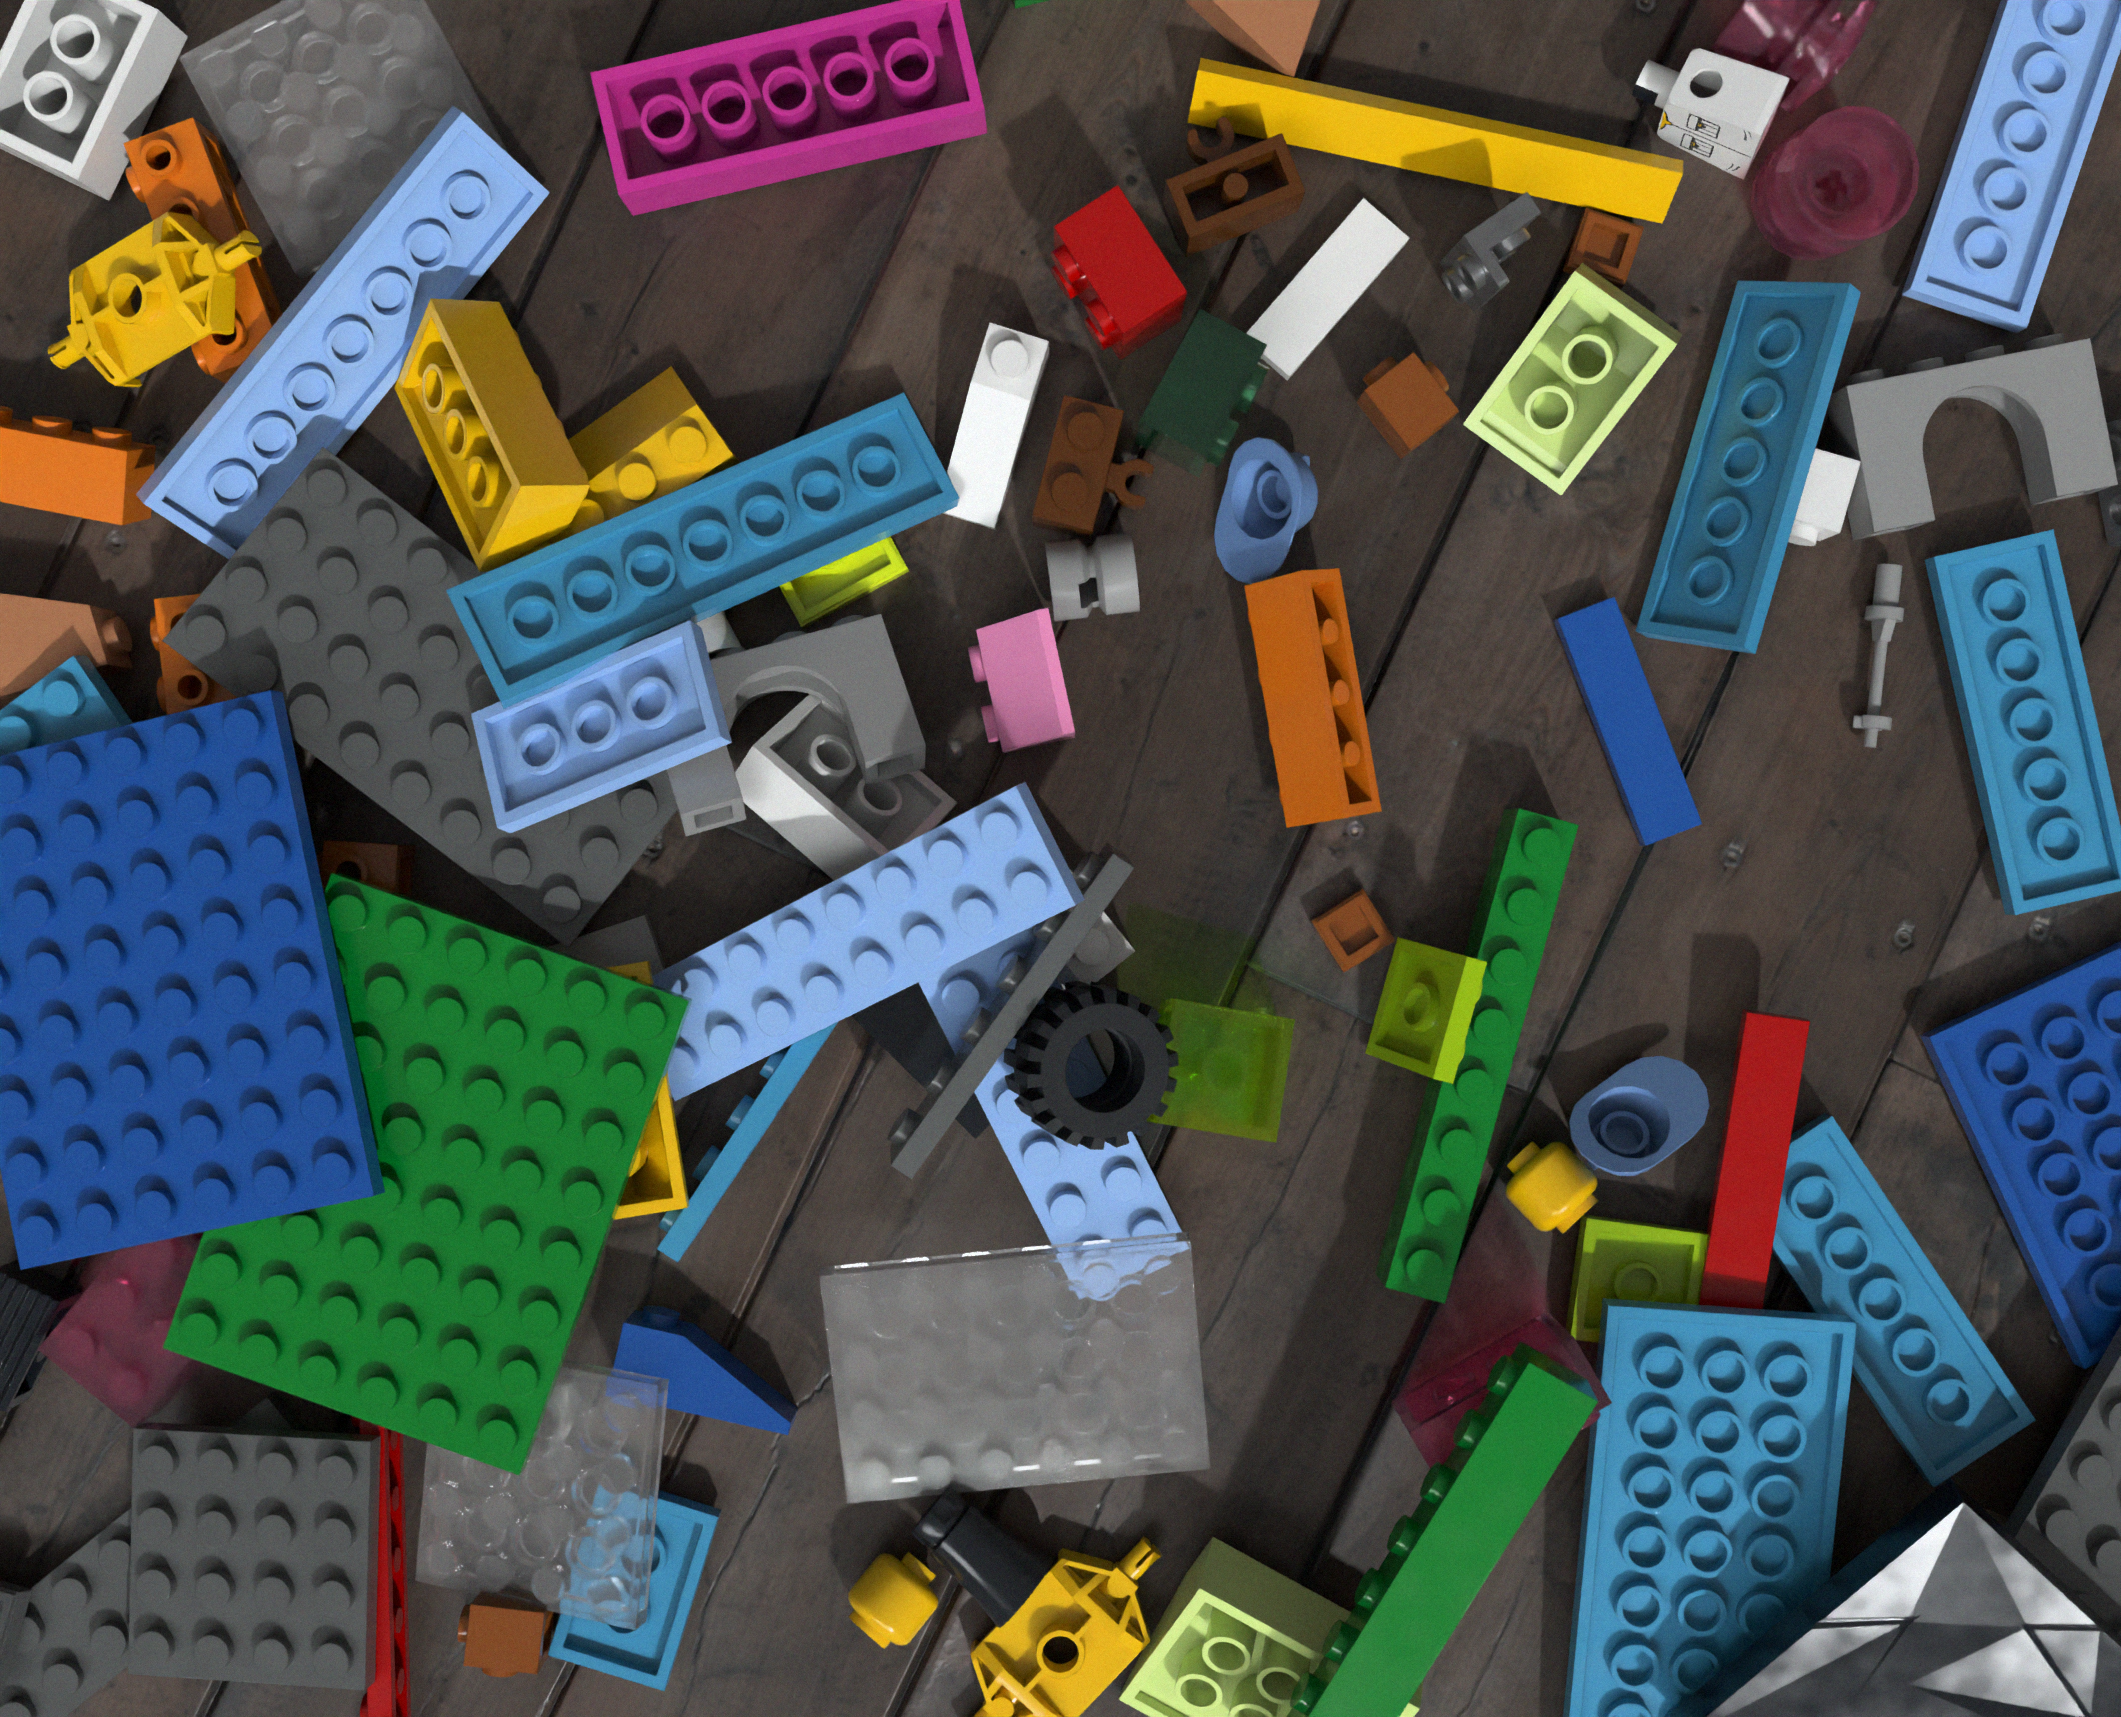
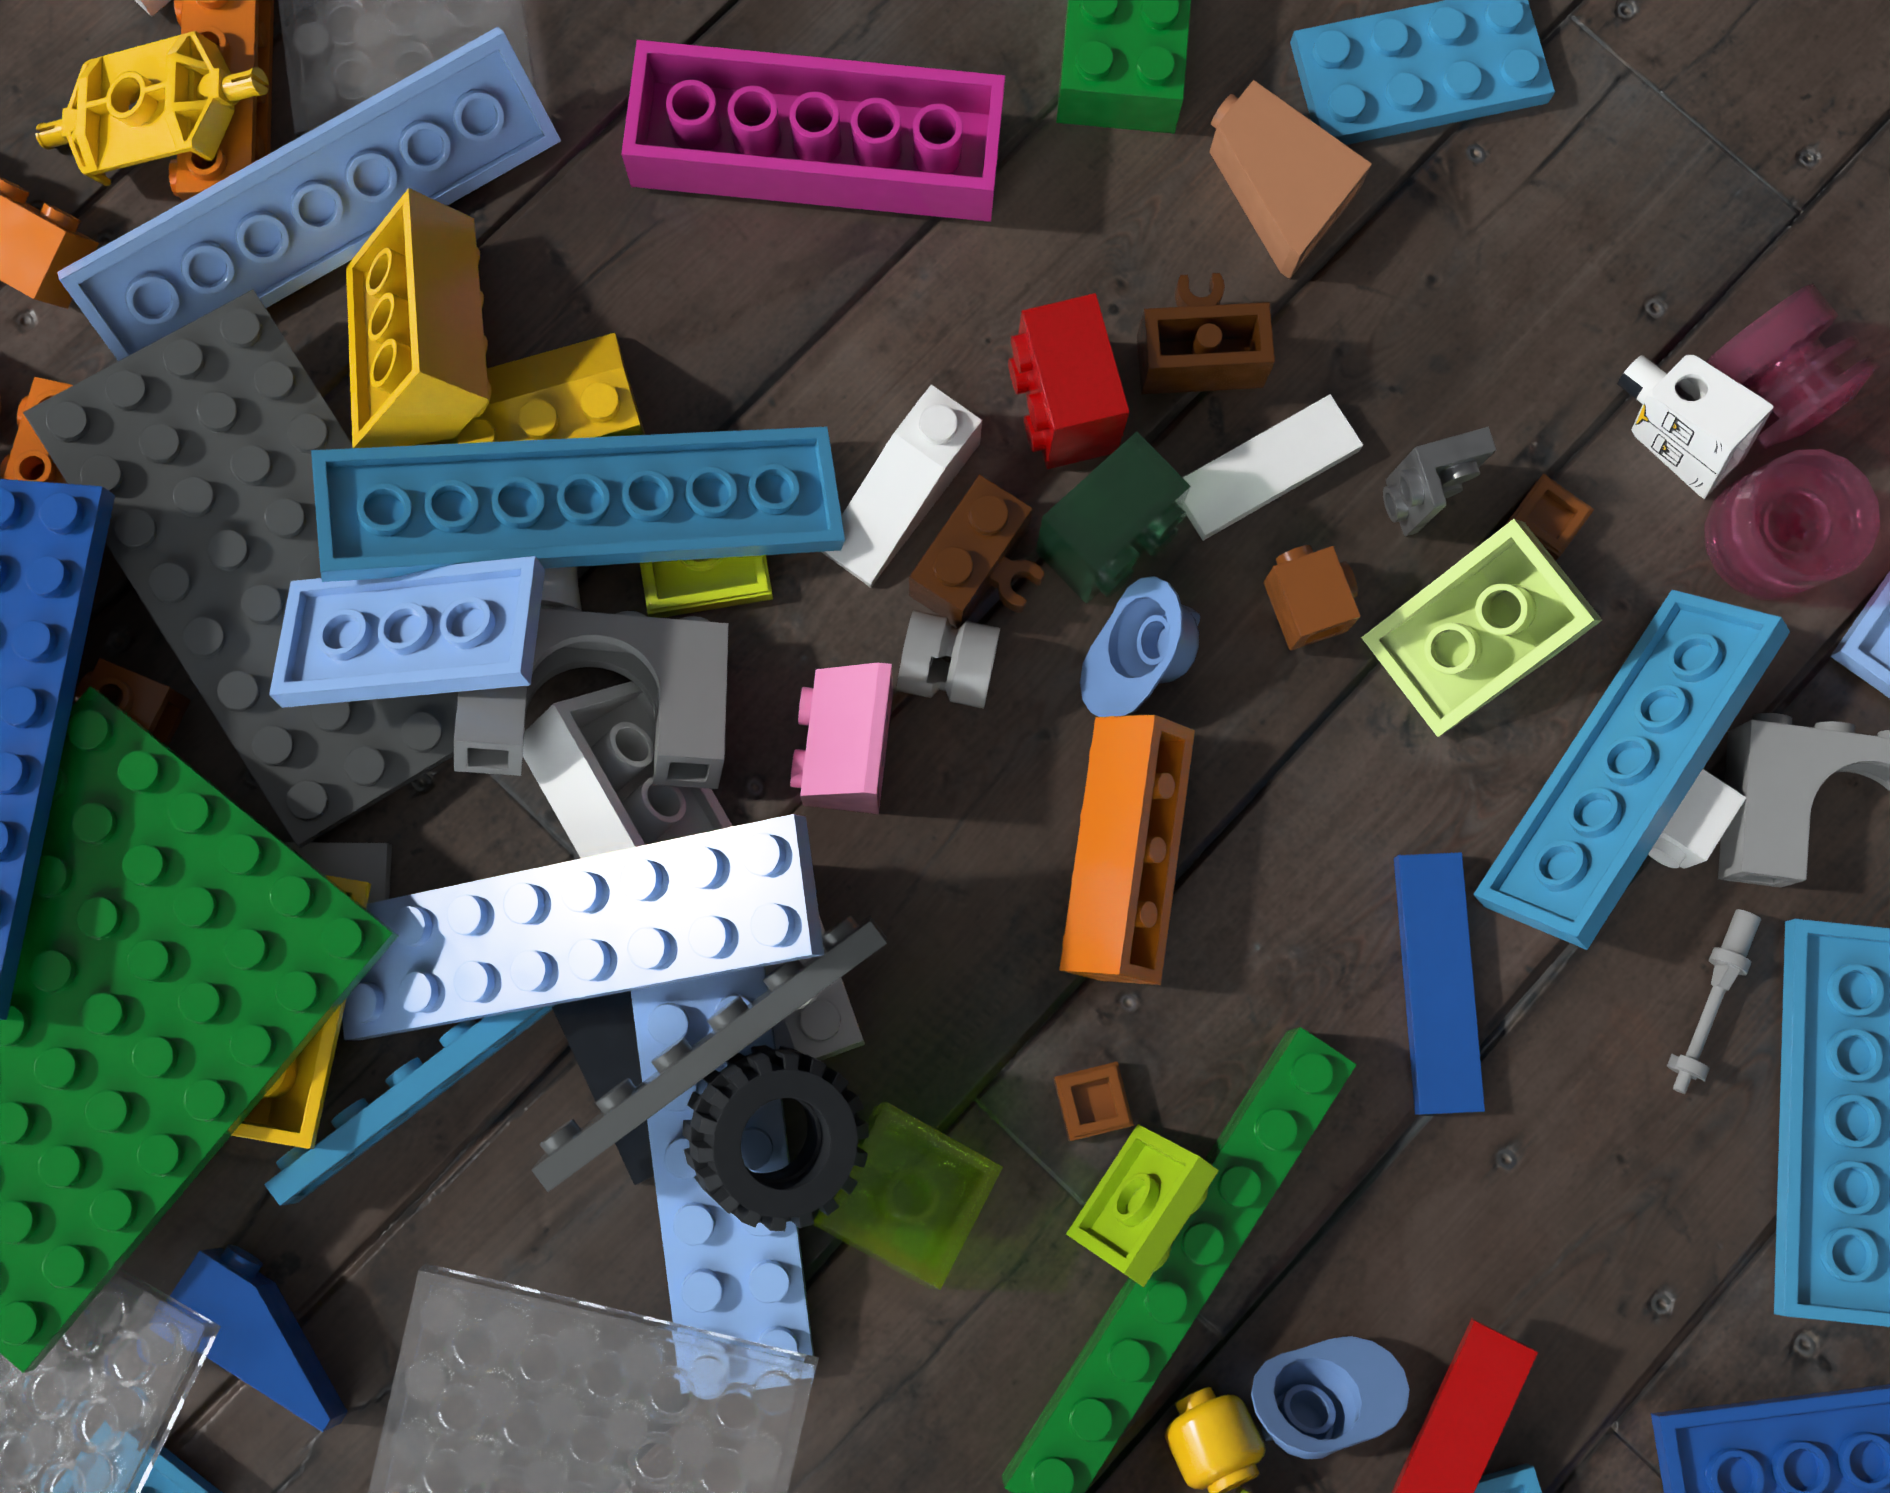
camera: 15 degrees right, 10 degrees down
(1436, 141) = (1418, 365): yellow tile -> none

